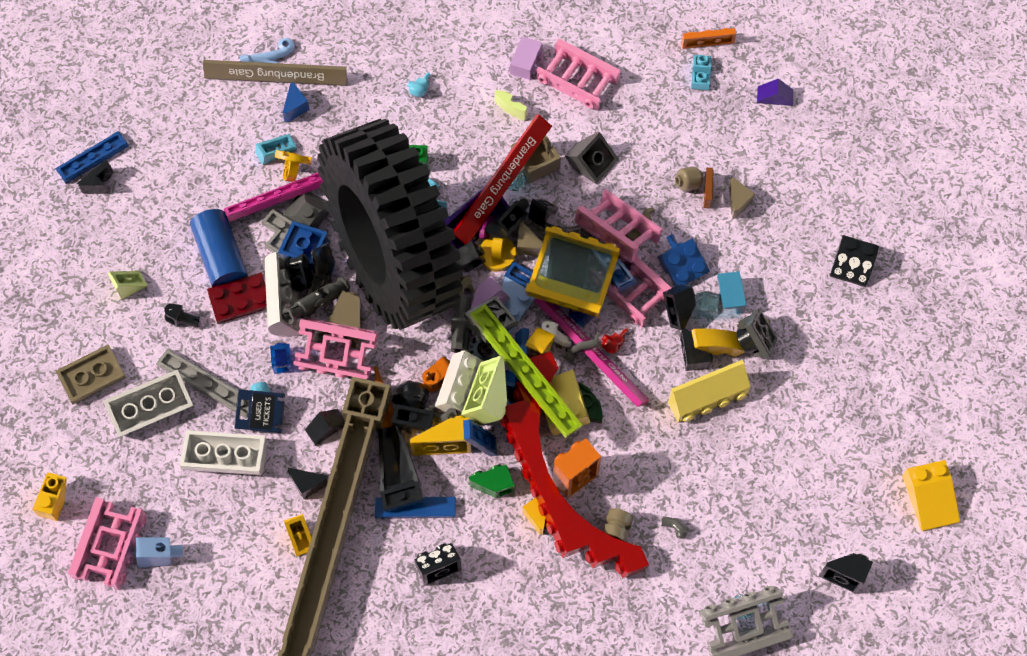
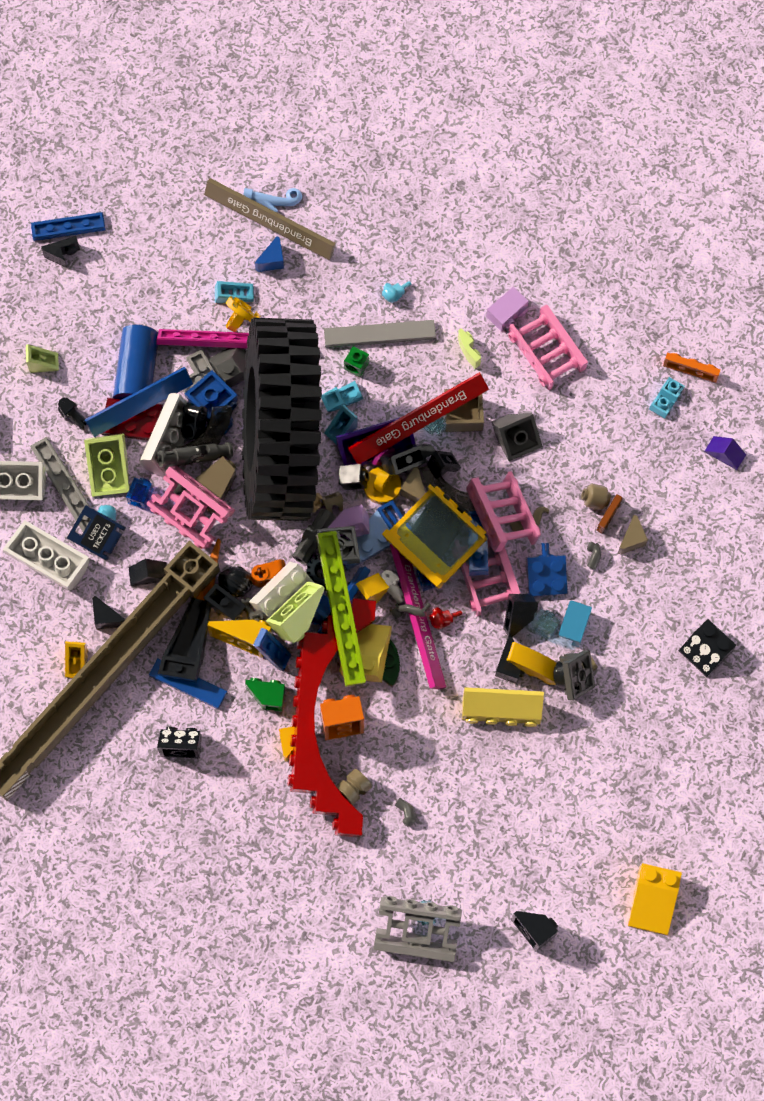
camera: 25 degrees right, 5 degrees up
(238, 347) = (107, 464): none -> yellowish green slope
(239, 278) = (138, 402): none -> blue tile
(438, 119) = (379, 333): none -> light grey tile
(715, 227) = (596, 555): none -> dark grey arm

